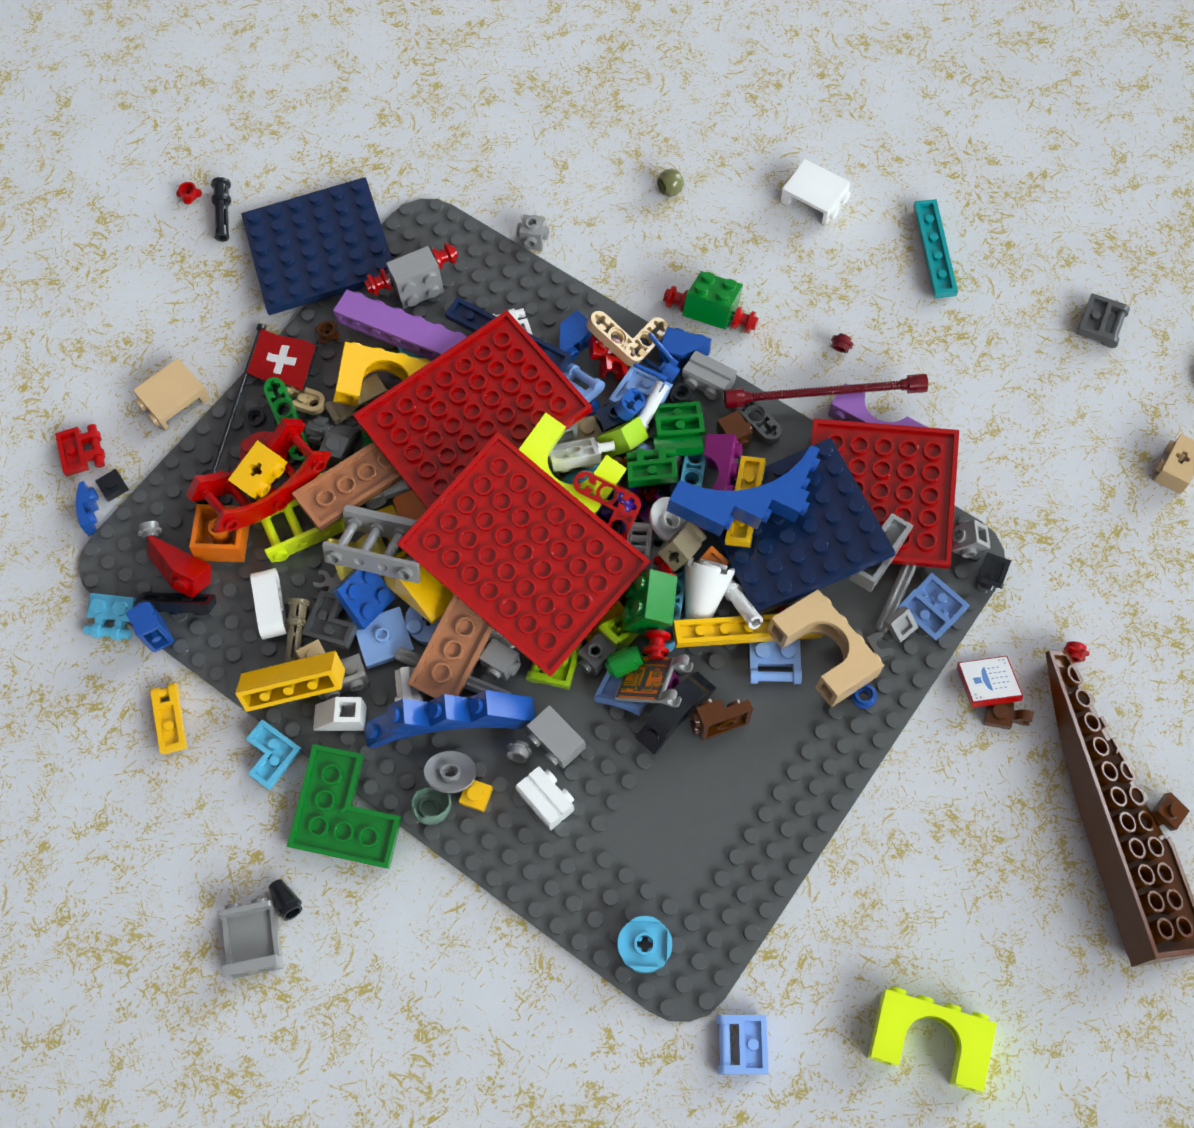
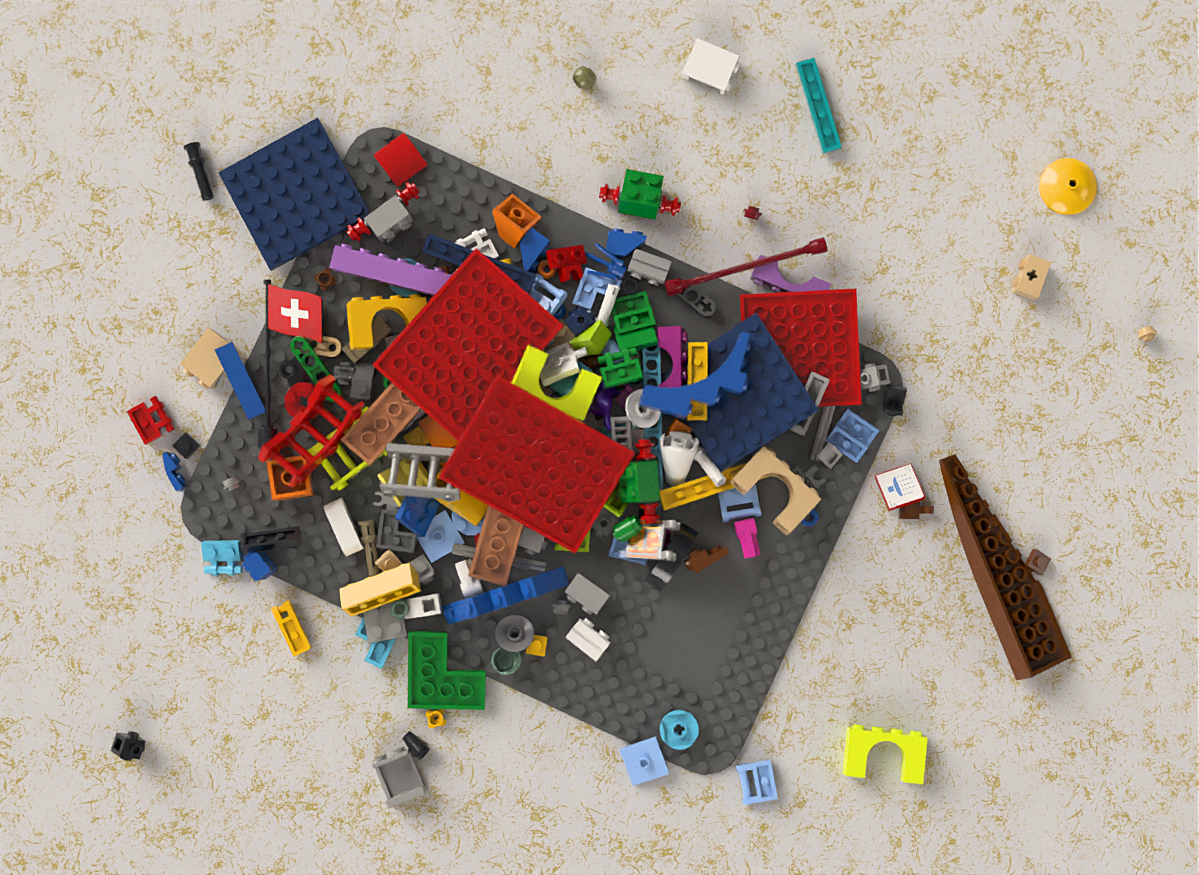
camera: 15 degrees left, 20 degrees up
(179, 568) = (268, 513): red slope -> none
(188, 192) = (159, 158): red plate -> none
(196, 418) = (240, 380): none -> blue tile
(258, 459) = (302, 437): yellow brick -> none
(287, 727) = (382, 625): none -> light grey plate
(304, 706) = (394, 609): none -> sand green plate
(314, 865) = (432, 723): none -> yellow plate
(445, 225) = (400, 159): none -> red slope
(533, 232) = (479, 156): light grey brick -> none
(557, 302) = (514, 220): none -> orange slope
(585, 356) = (543, 263): none -> orange plate
(589, 982) = (644, 761): none -> light blue plate
(620, 512) = (602, 414): red beam -> none
(627, 344) = (578, 252): tan beam -> none
(630, 404) = (586, 319): blue beam -> none
(682, 545) = (655, 433): dark tan piece -> none
(736, 425) = (679, 313): reddish brown brick -> none
(780, 701) = (747, 532): none -> dark pink piece
(1077, 651) = (961, 451): red plate -> none
(1096, 316) = (957, 150): dark grey plate -> none

